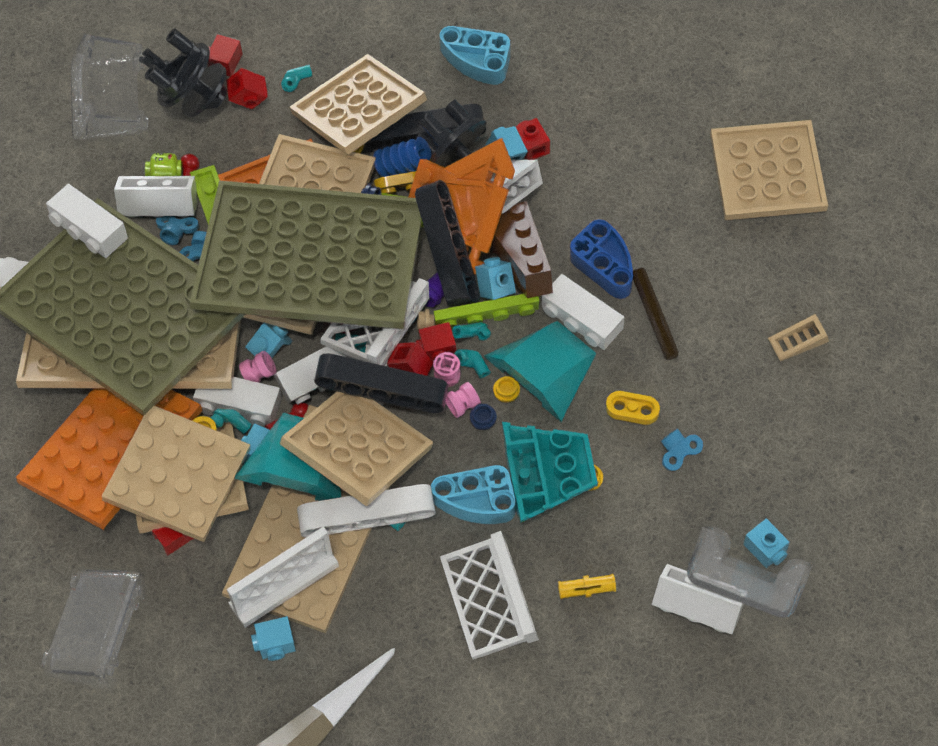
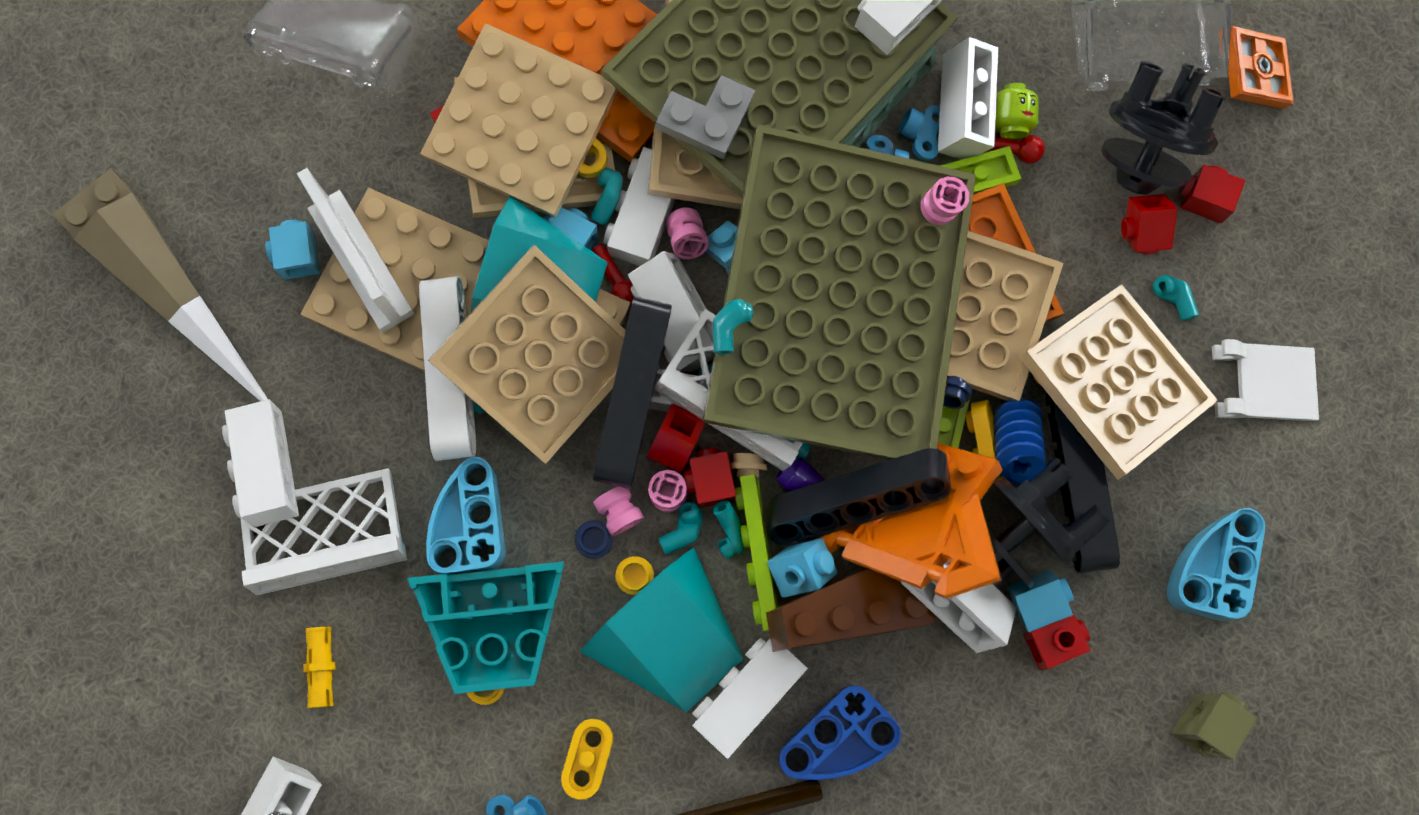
camera: 90 degrees right, 15 degrees up
(134, 27) = (1259, 68): none -> orange piece
(185, 338) = (711, 125): none -> light grey plate
(243, 191) = (942, 209): none -> bright pink wheel
(336, 309) = (731, 316): none -> teal arm
(352, 25) = (1271, 381): none -> white flag
(442, 637) = (260, 464): none -> white brick
(576, 52) = (1215, 724): none -> olive brick

